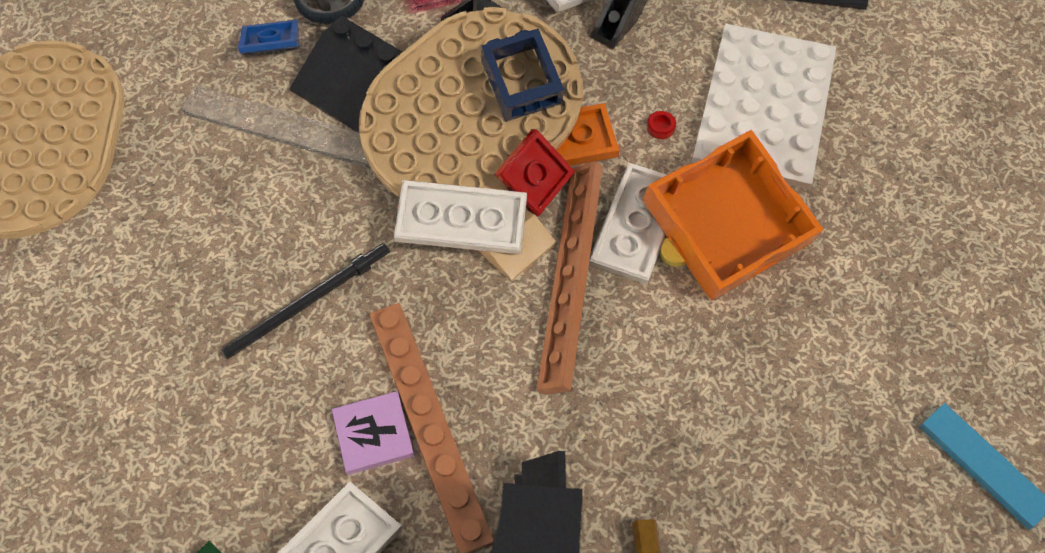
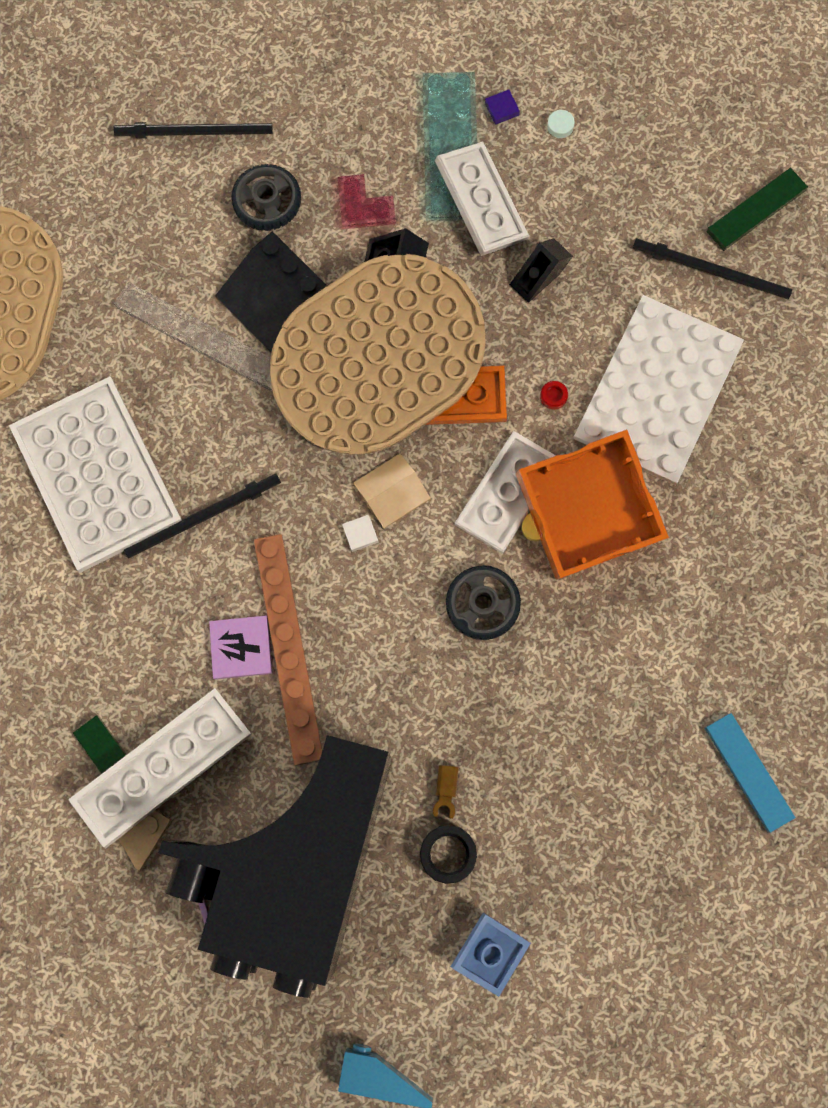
camera: 15 degrees right, 15 degrees up
(179, 278) = (95, 474): none -> white plate
(269, 37) = (203, 237): blue slope -> none
(460, 217) = (347, 465): white tile -> none
(487, 288) = (360, 533): none -> white tile
(530, 100) = (432, 362): dark blue window -> none
(536, 170) = (422, 431): red tile -> none
(544, 471) = (370, 719): black slope -> none
(570, 281) = (435, 535): nougat plate -> none
(625, 357) = (508, 607): none -> dark grey wheel

